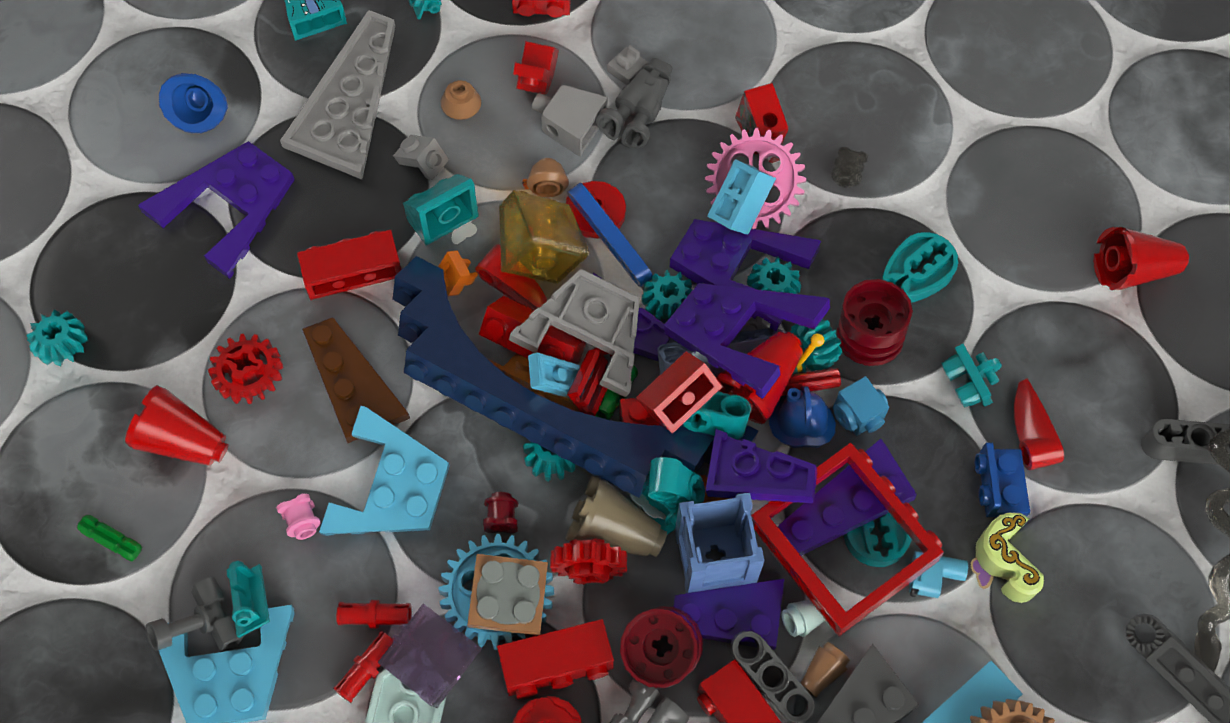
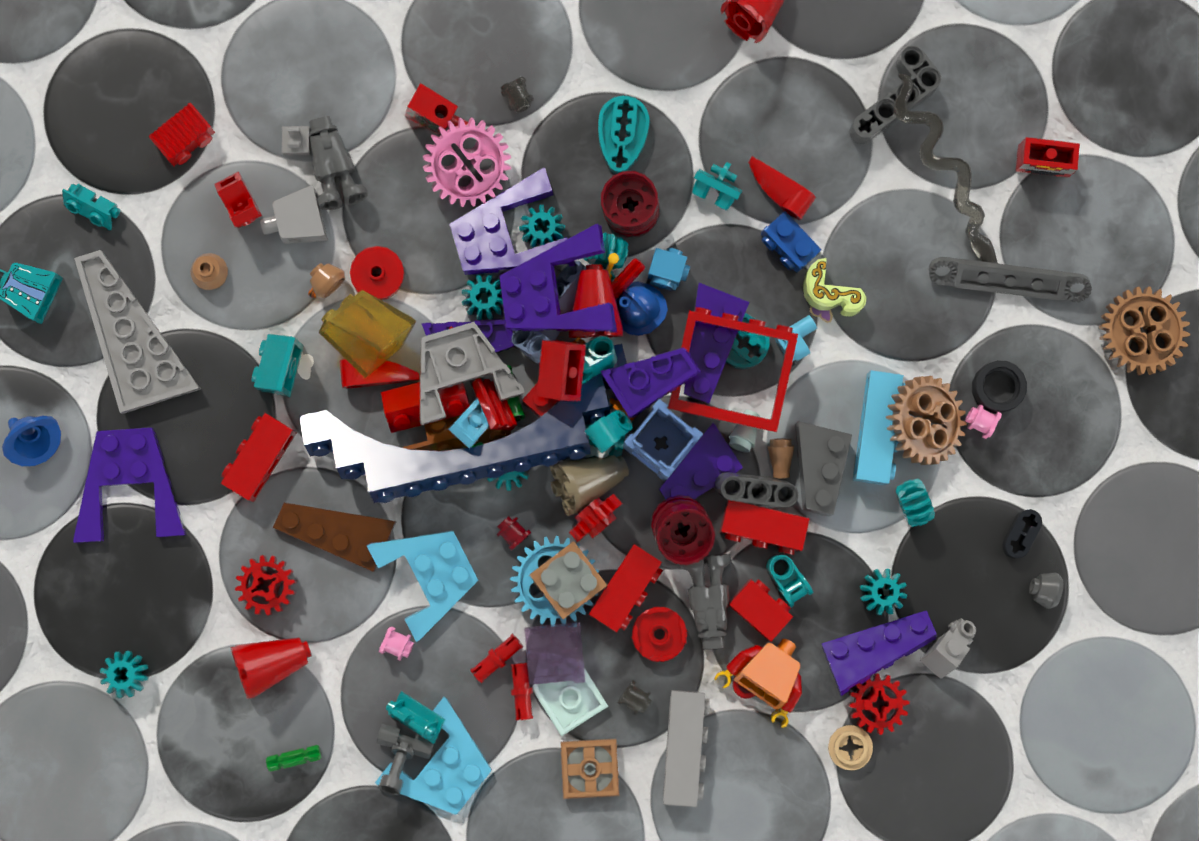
camera: 45 degrees left, 20 degrees up
(422, 153) = (224, 336): light grey bracket -> none
(456, 272) = (332, 402): orange tile -> none
(610, 234) = (408, 287): blue beam -> none
(741, 197) = (473, 189): medium azure hinge -> none

